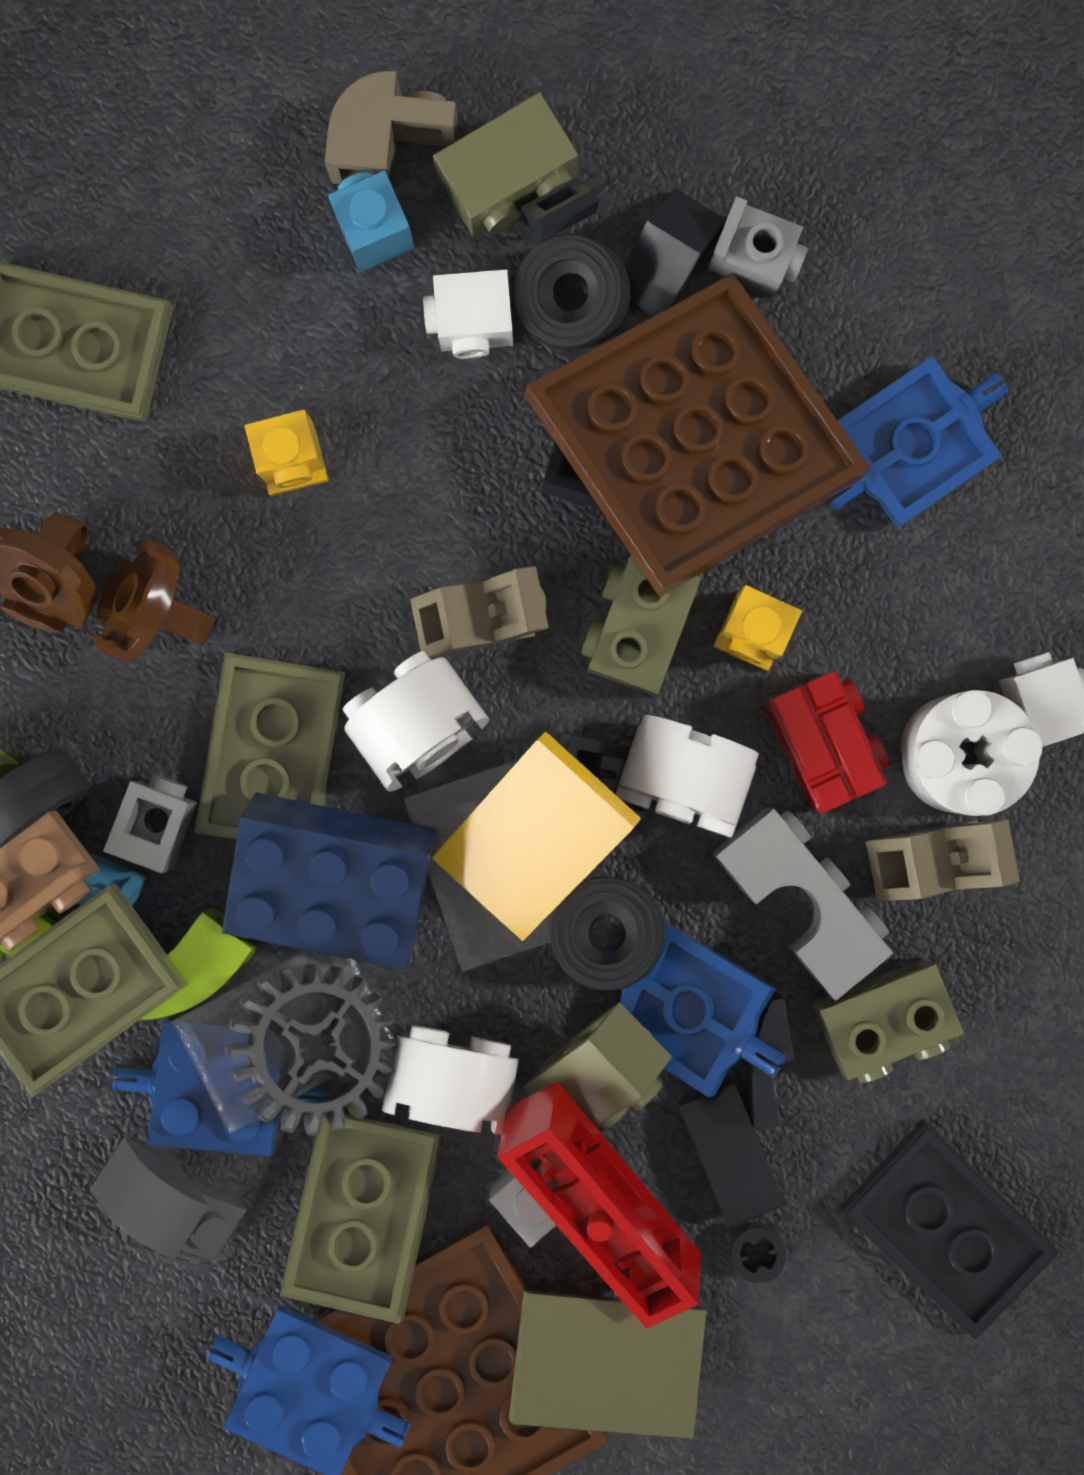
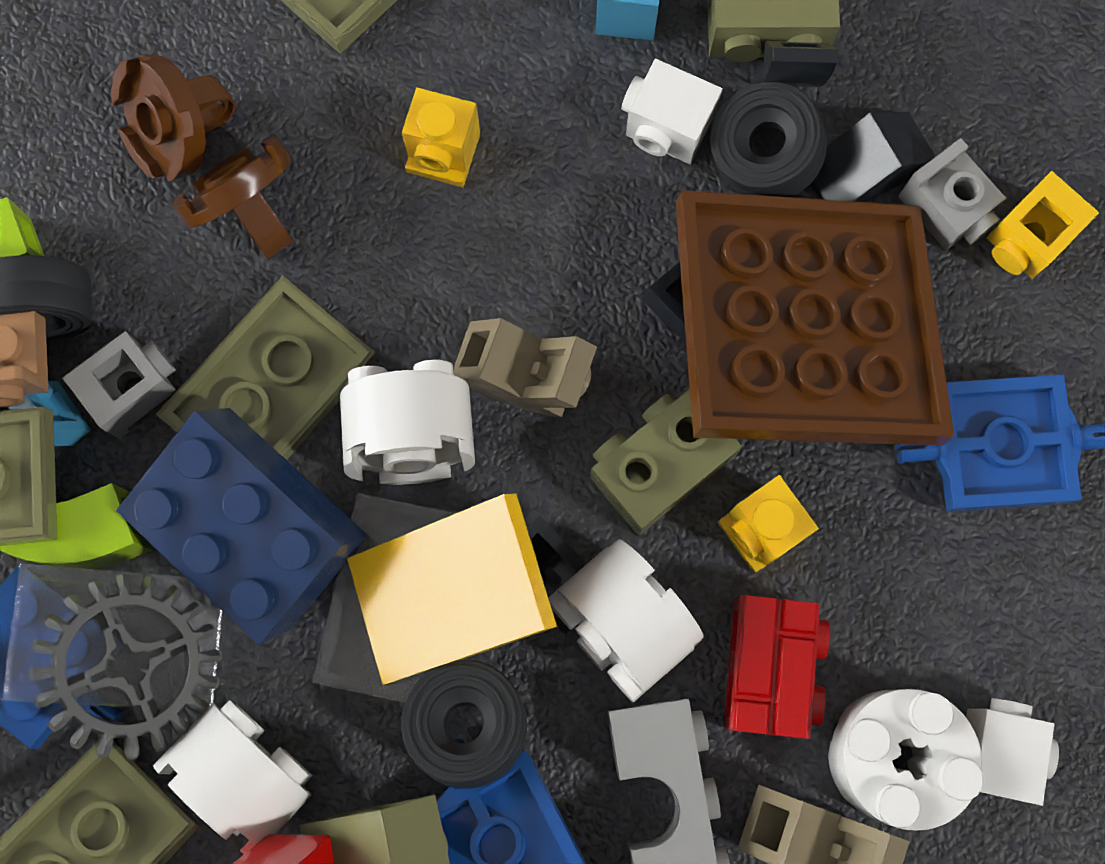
camera: 35 degrees right, 10 degrees down
(855, 217) = (1040, 227): none -> yellow brick

